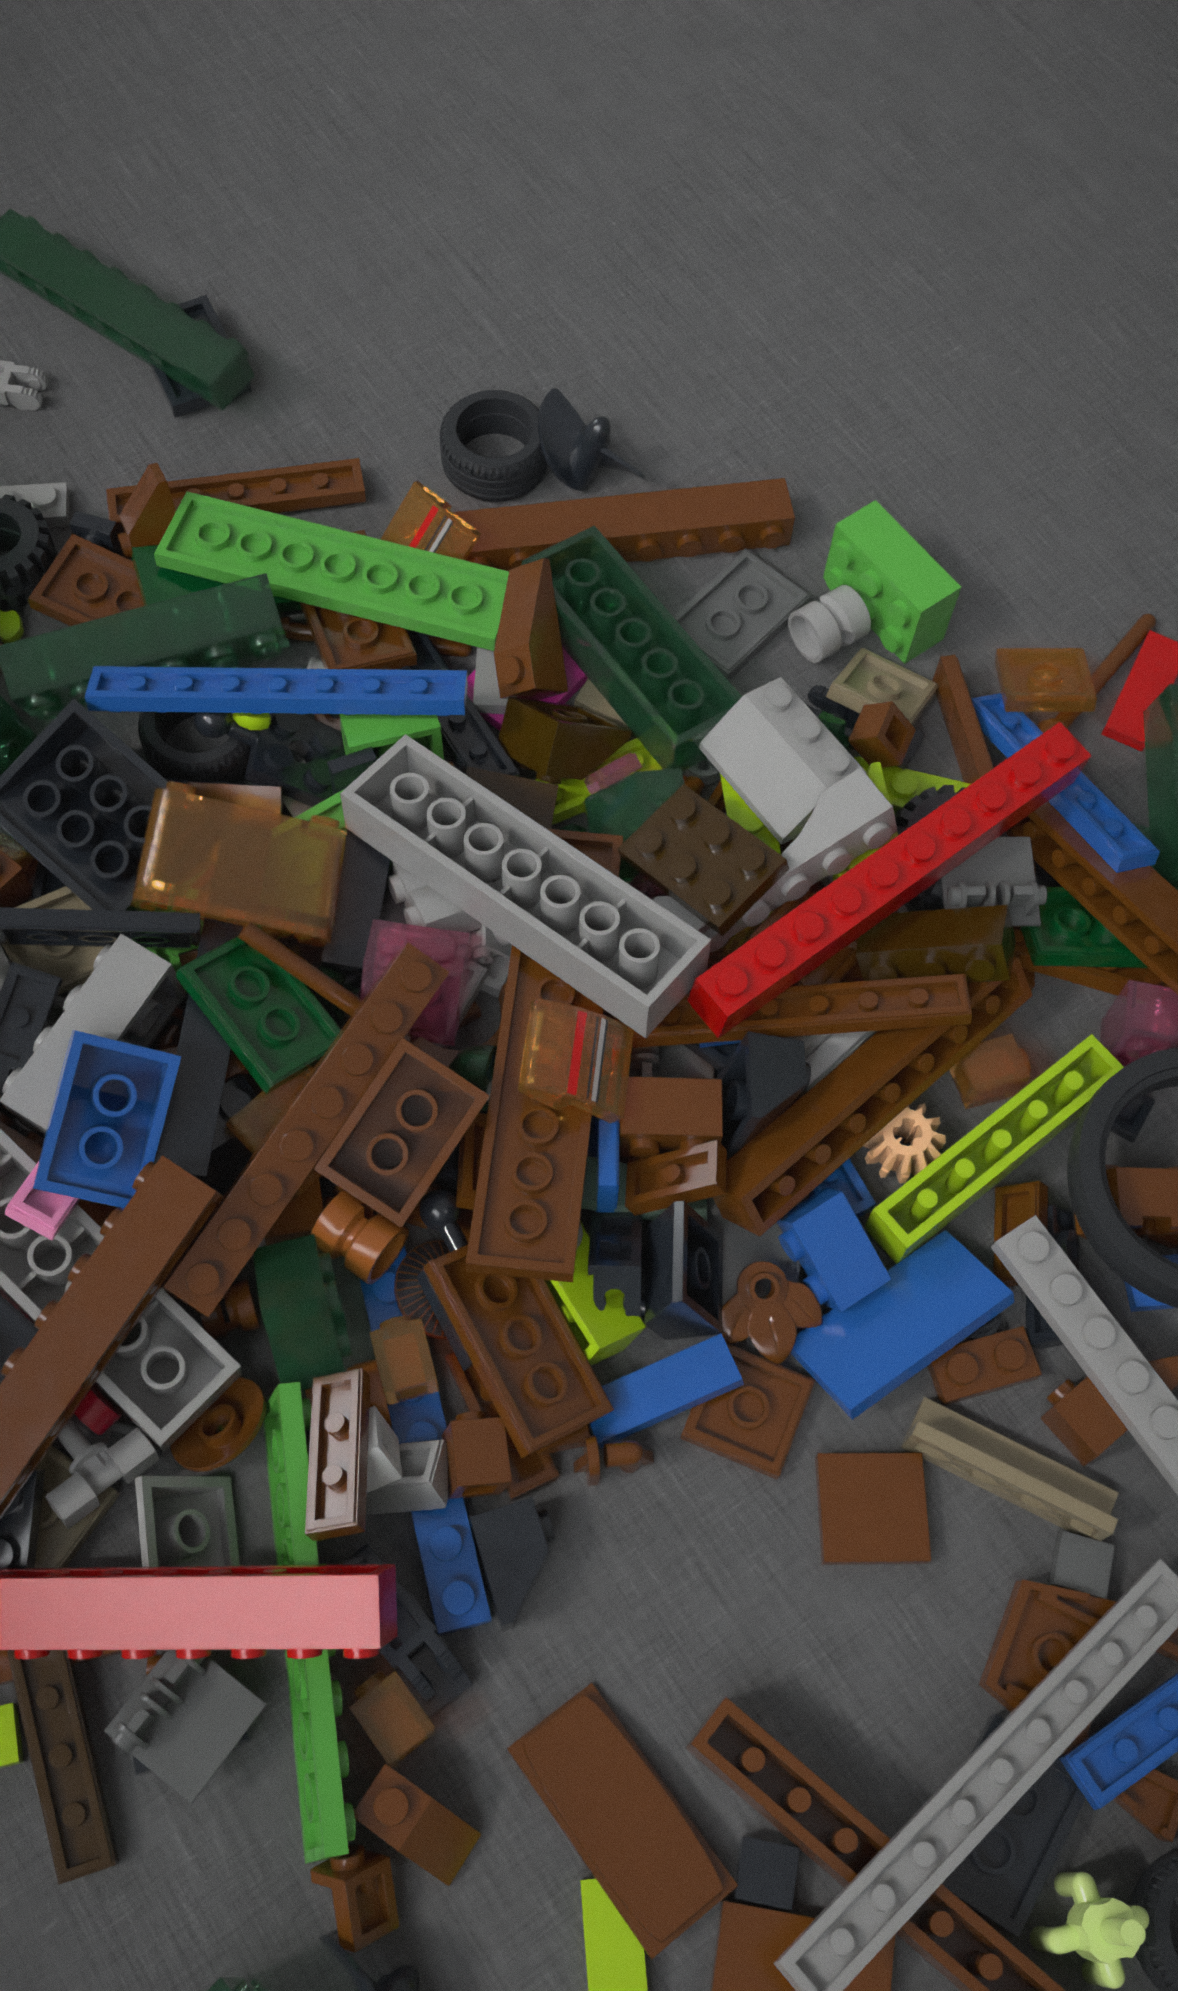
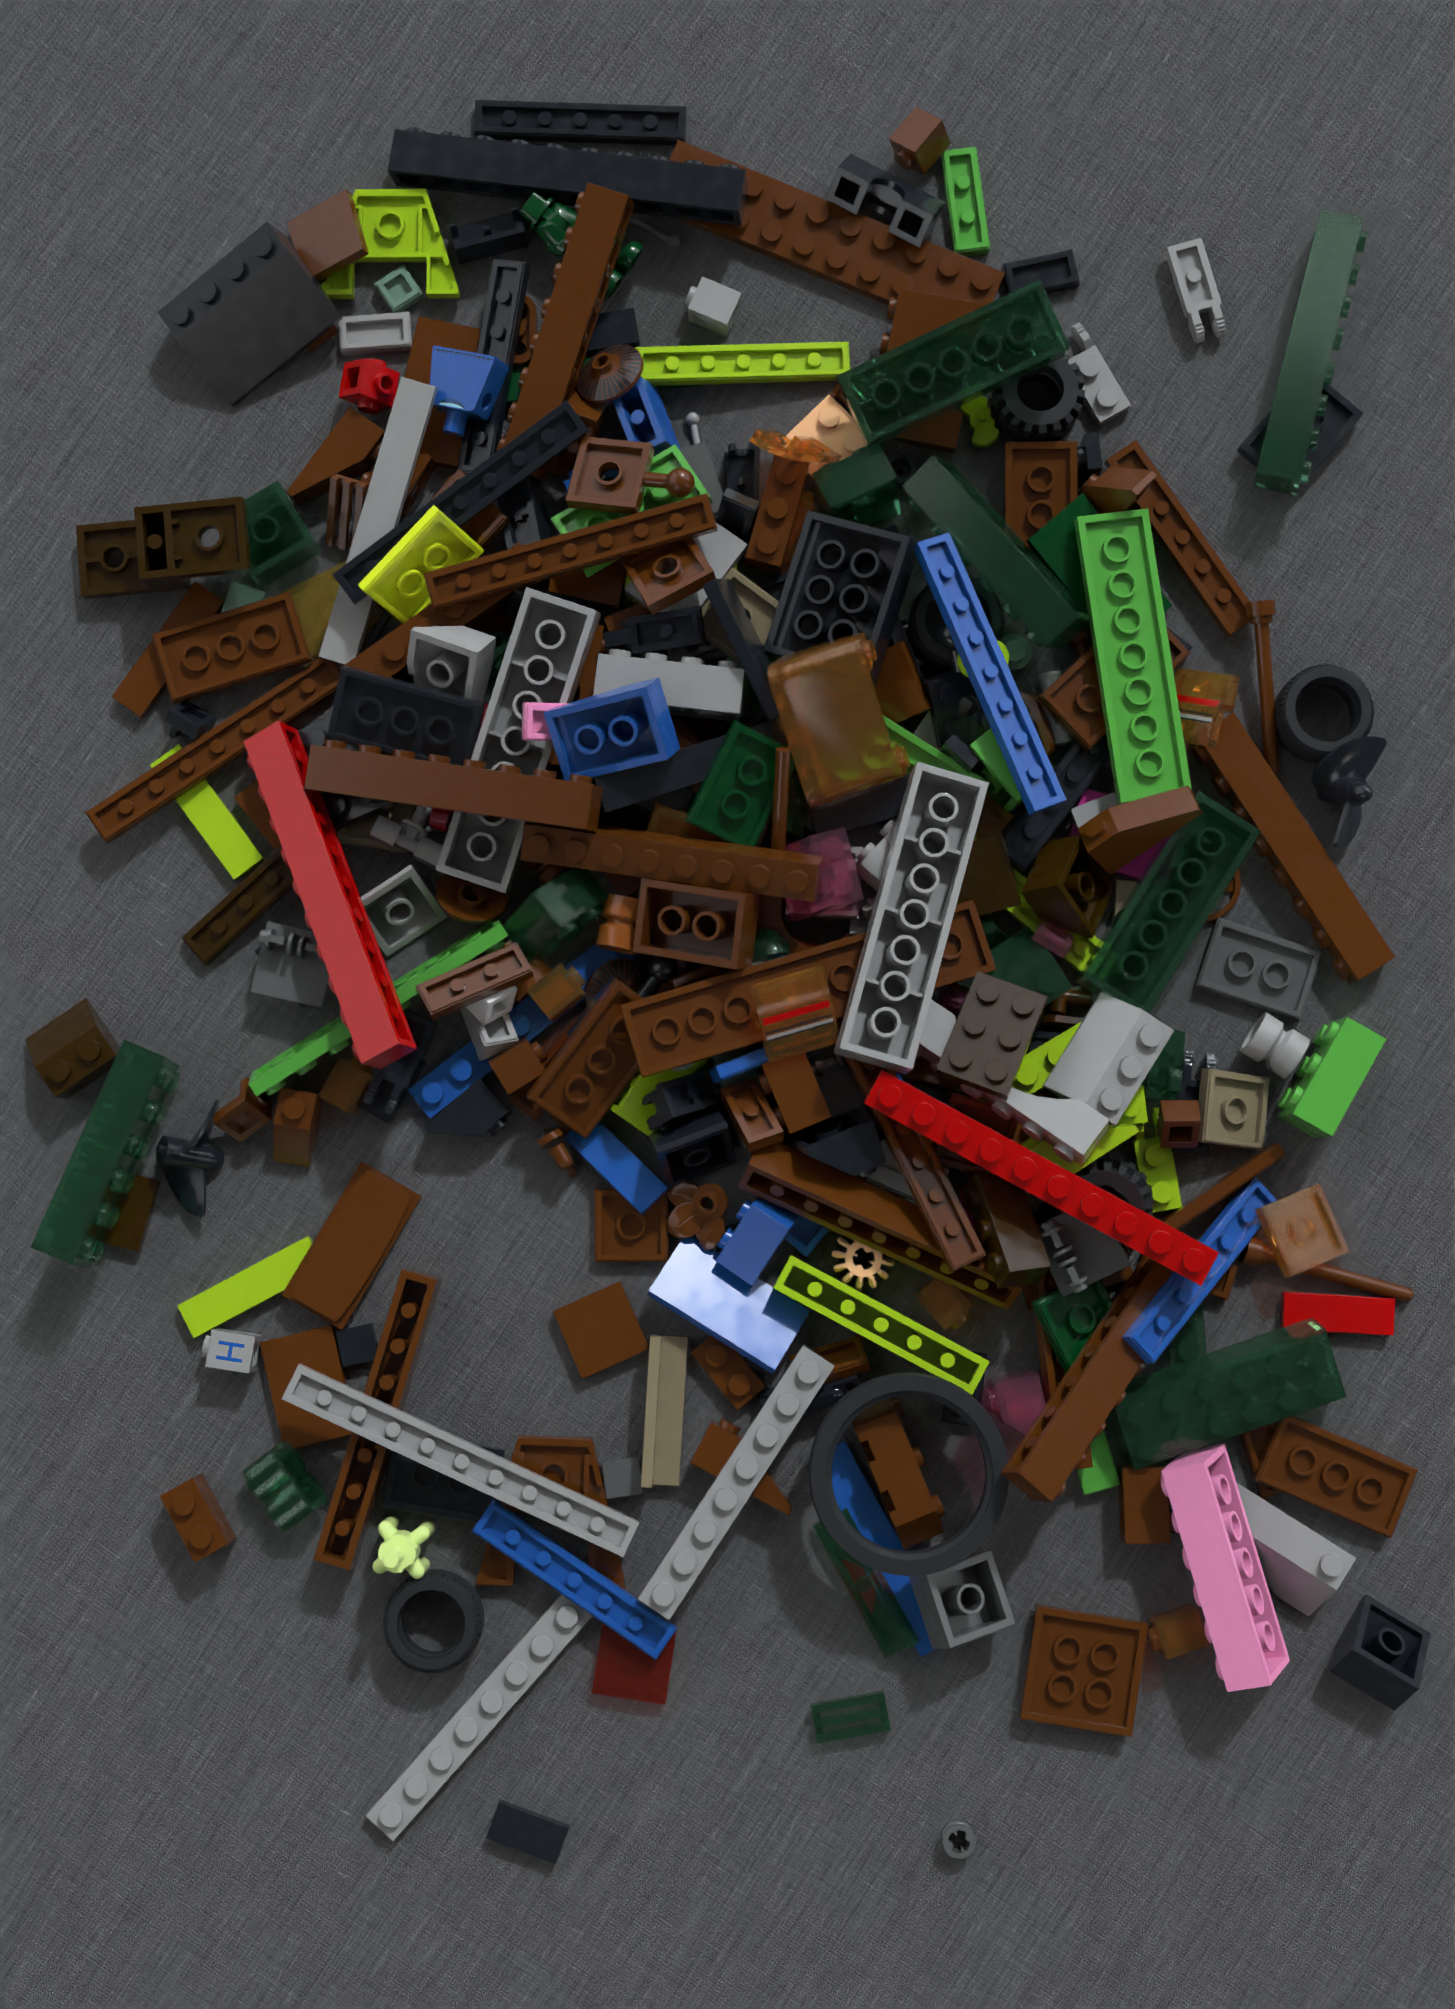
camera: 75 degrees right, 20 degrees up
(360, 450) = (1260, 616): none -> reddish brown piece

